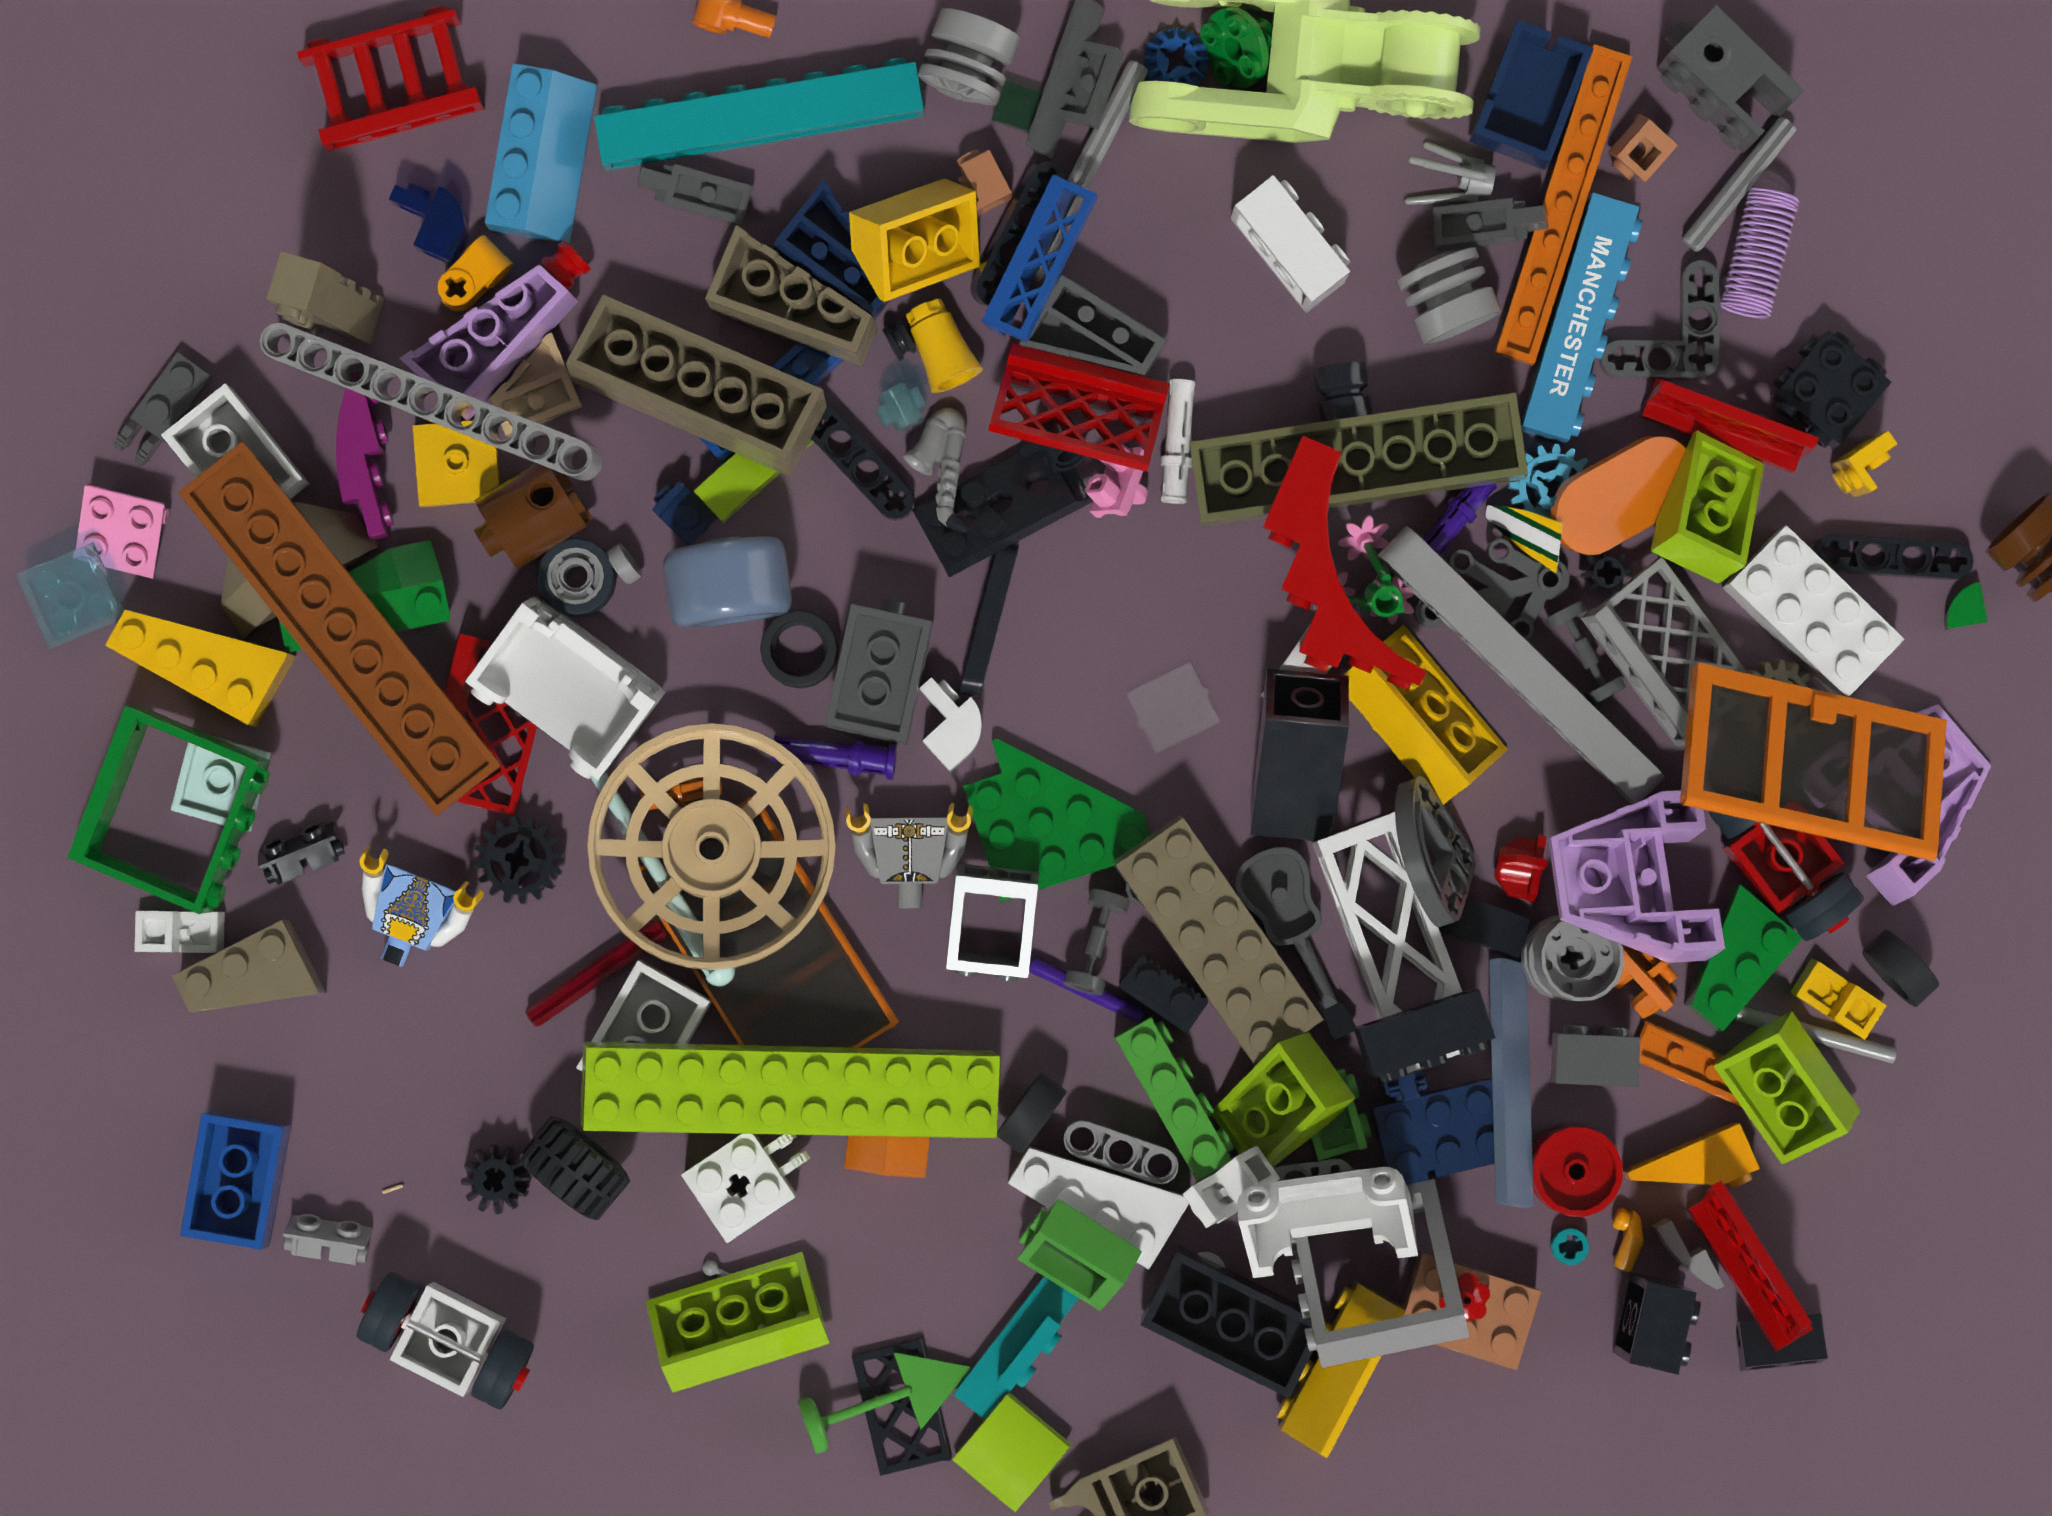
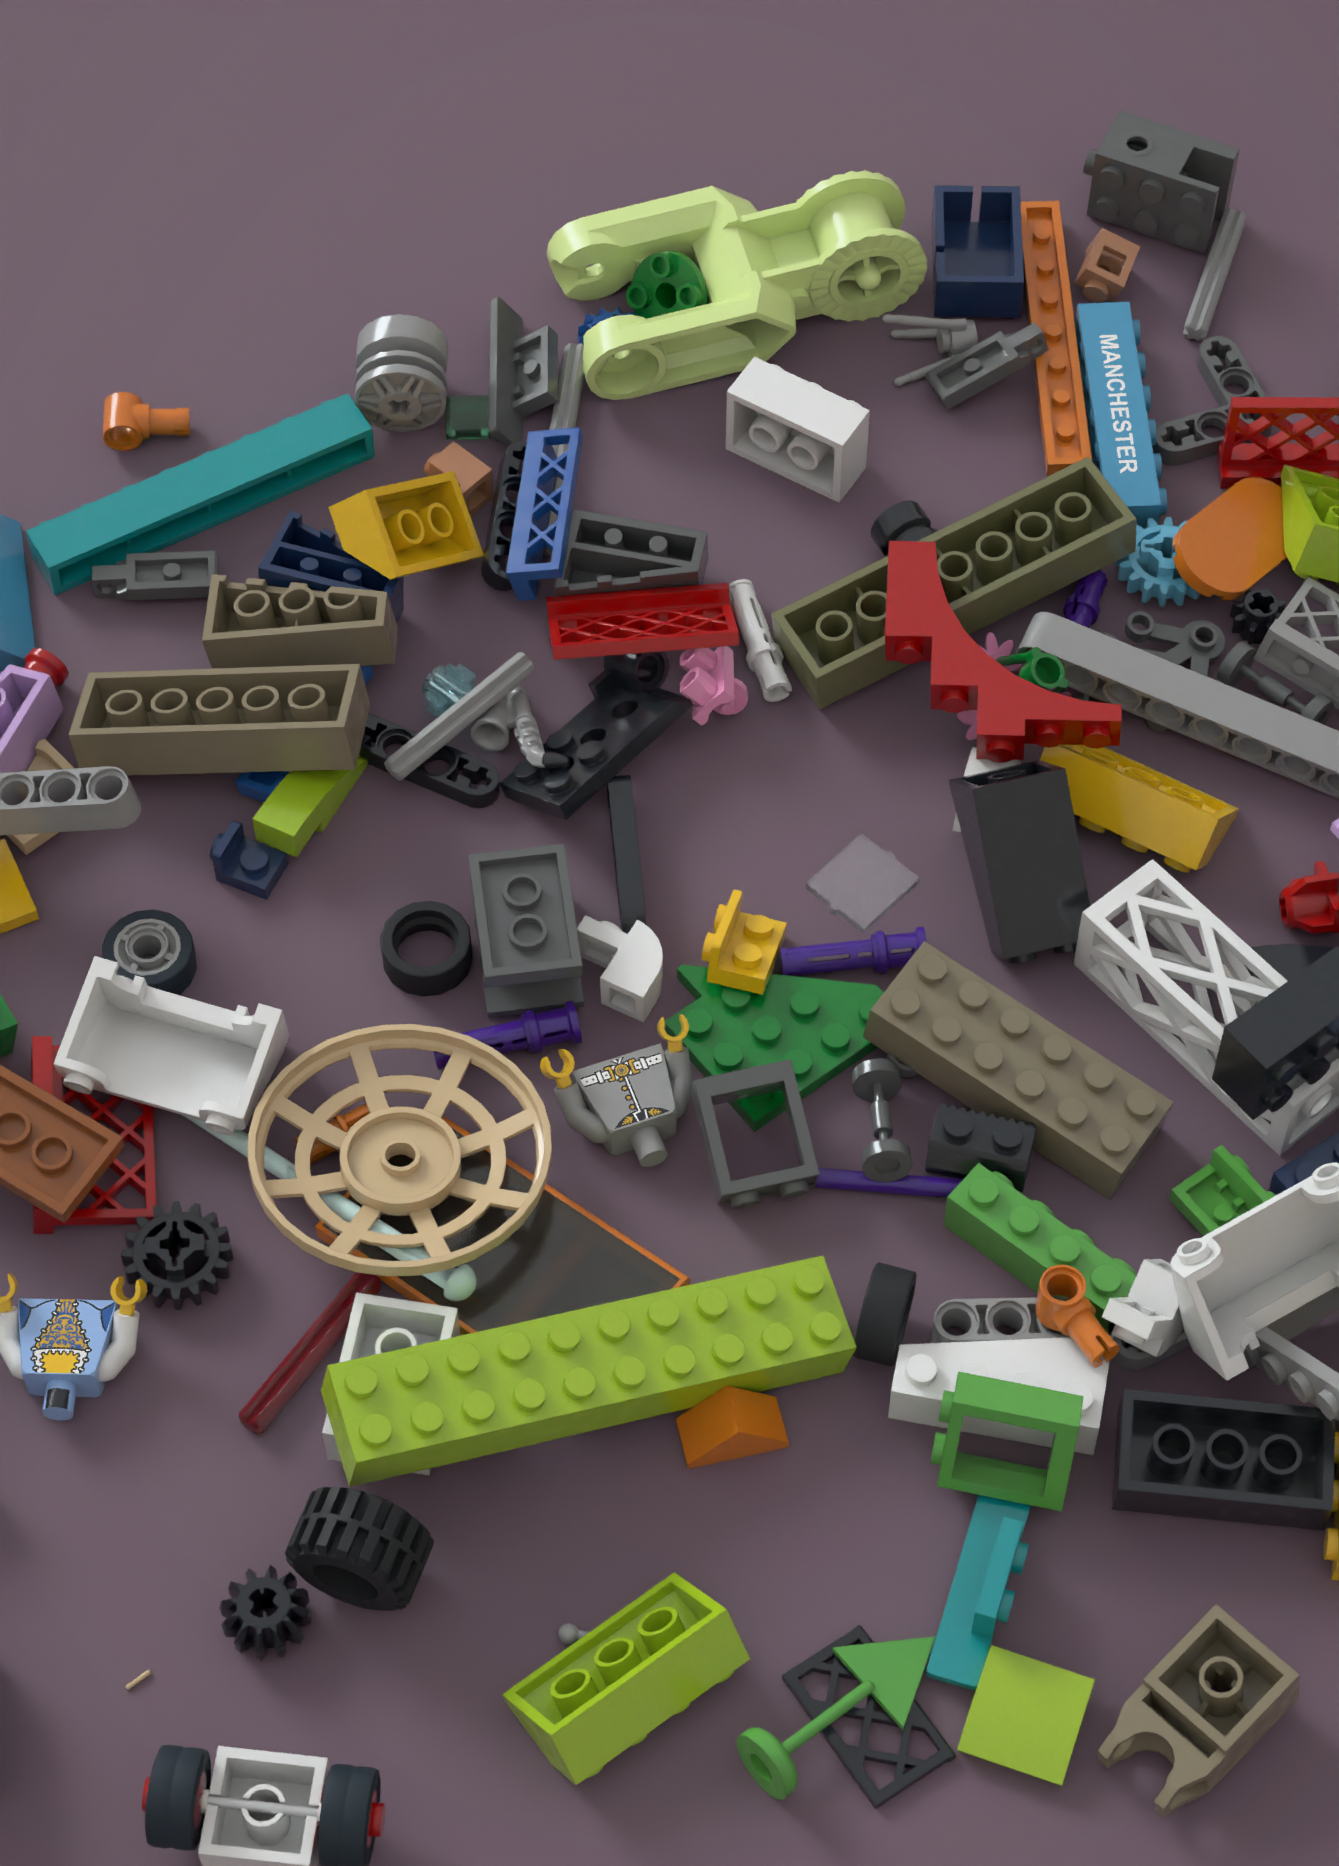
camera: 15 degrees left, 30 degrees down
(309, 1233) = (50, 1764): light grey hinge -> none
(521, 520) = (76, 898): reddish brown cylinder -> none
(624, 564) = (201, 926): light grey tile -> none
(727, 581) = (321, 884): sand blue wheel -> none
(767, 1188) = (571, 1483): white hinge -> none
(897, 443) = (459, 716): none -> light grey axle
(899, 340) = (425, 638): black bush -> none
(941, 347) = (474, 628): yellow plant -> none
(1050, 747) = (743, 947): none -> yellow bracket
(1156, 783) = (795, 959): none -> dark purple pin
(1167, 1183) = (1075, 1315): none -> orange pin
(1278, 894) = (1069, 1002): dark grey piece -> none
(1283, 1100) = (1168, 1193): lime slope -> none
(1405, 1088) = (1293, 1131): dark blue hinge -> none
(1423, 820) = (1209, 892): dark grey beam -> none
(1449, 296) = (978, 424): light grey wheel -> none
(1529, 532) = (1167, 595): sticker -> none
(1750, 302) = (1271, 338): lavender piece -> none

